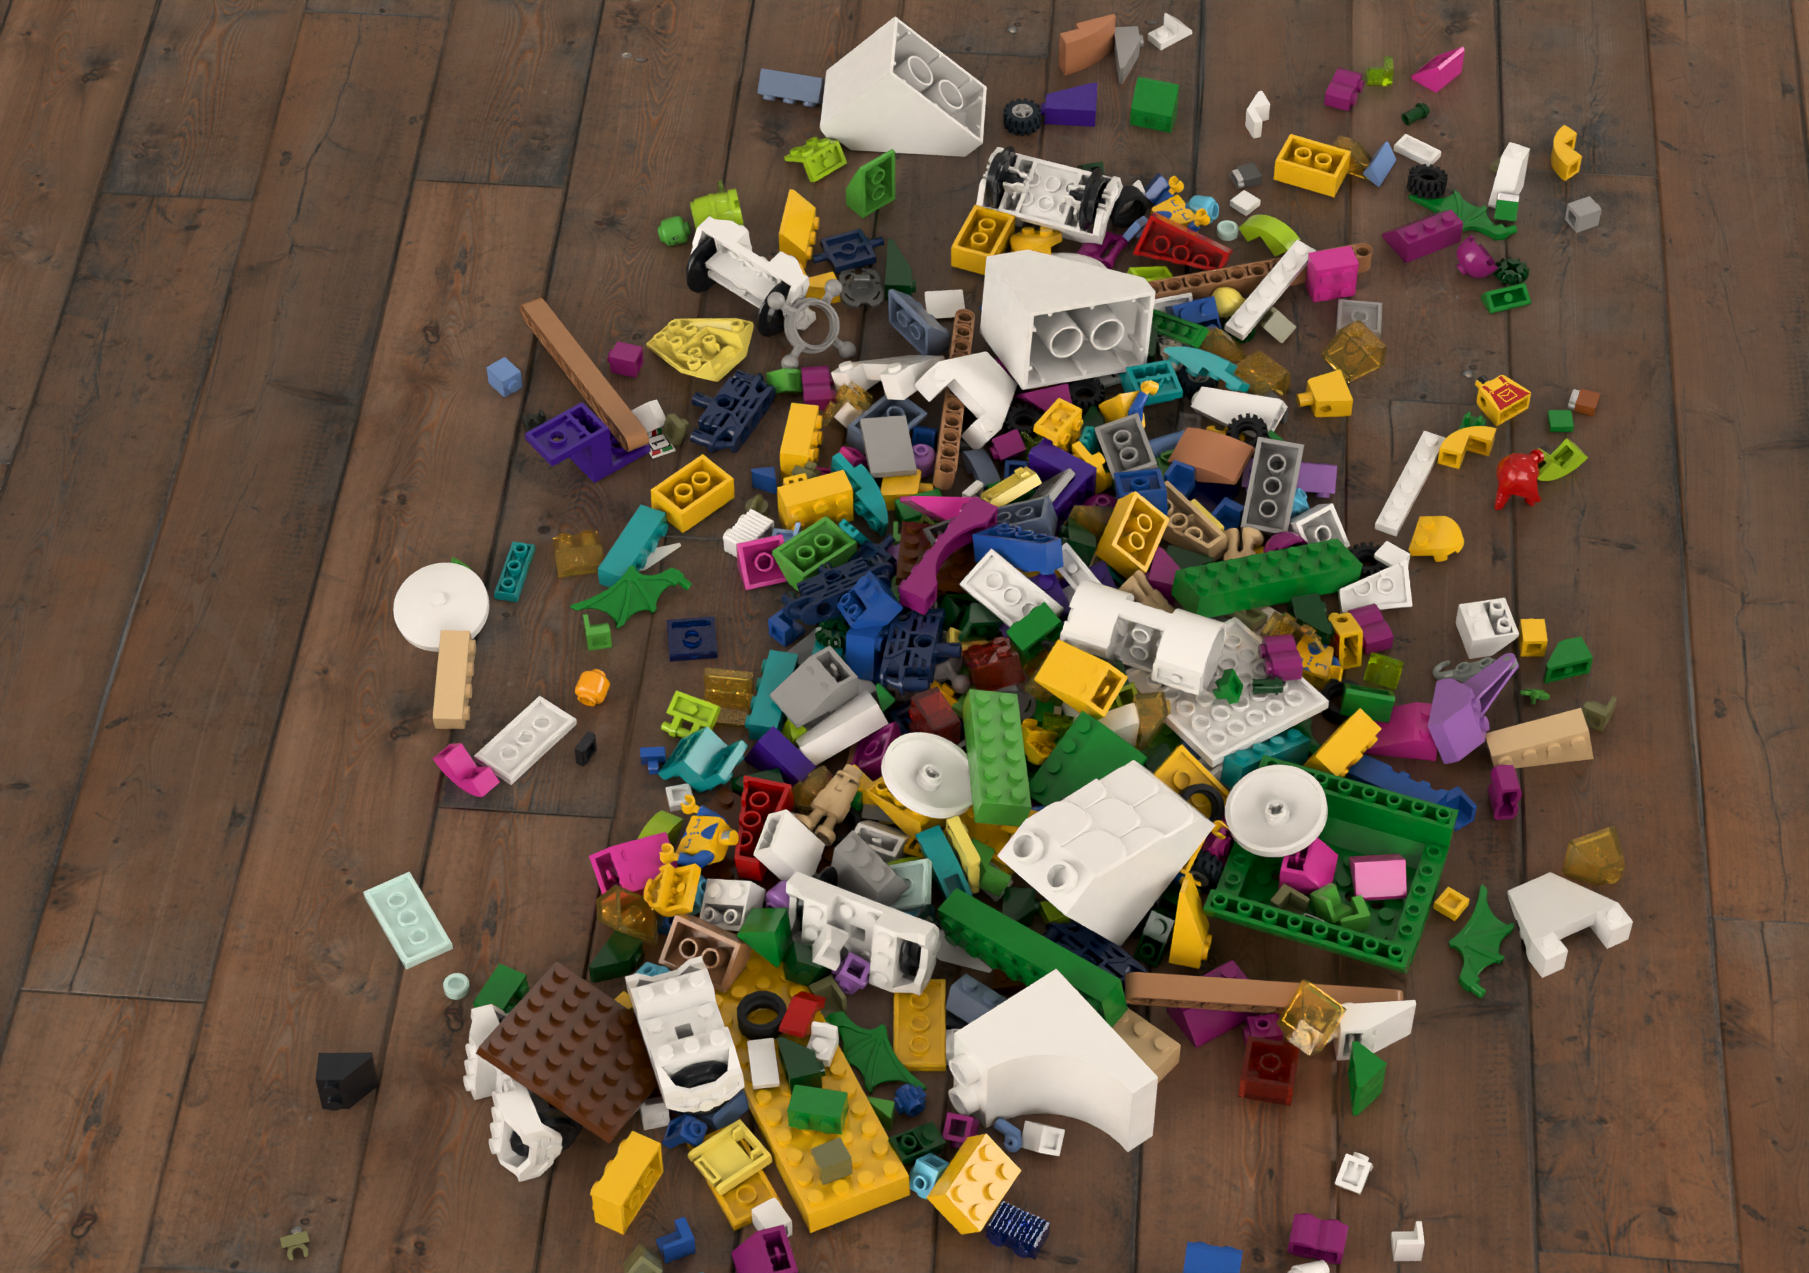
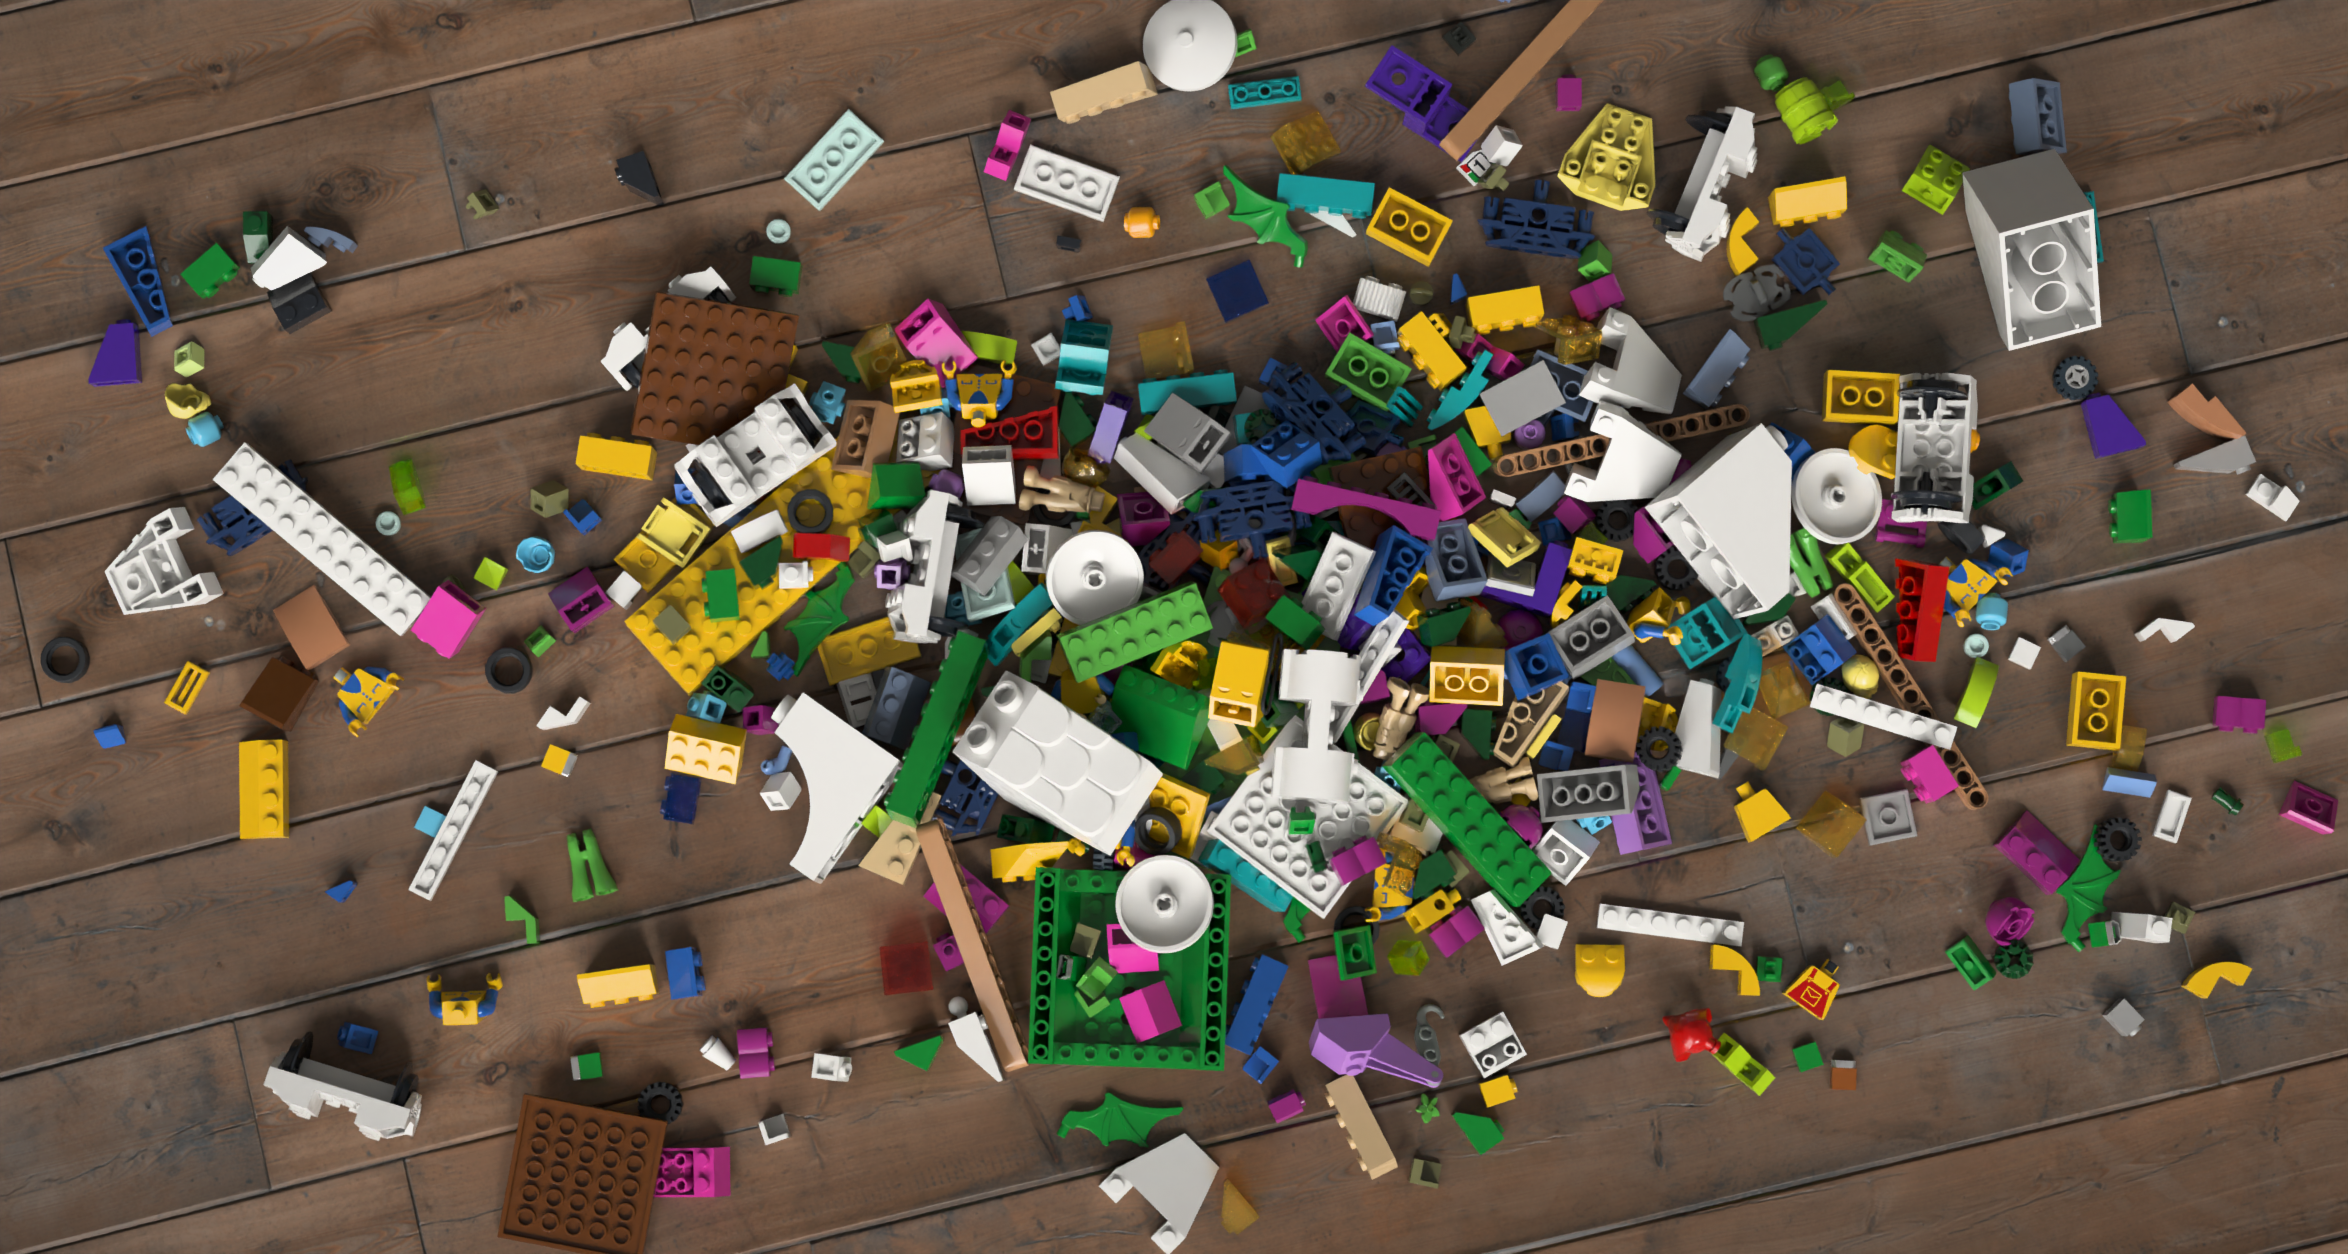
camera: 70 degrees right, 35 degrees up
(692, 710) = (1139, 327): lime plate -> none
(777, 301) = (1664, 307): light grey piece -> none
(944, 303) = (1766, 385): white sticker -> none
(1136, 229) = (1931, 552): medium blue plate -> none
(1178, 329) = (1786, 635): green tile -> none
(1310, 1018) = (951, 991): clear yellow slope -> none
(1345, 745) = (1280, 942): yellow brick -> none
(1451, 903) = (1149, 1085): yellow plate -> none

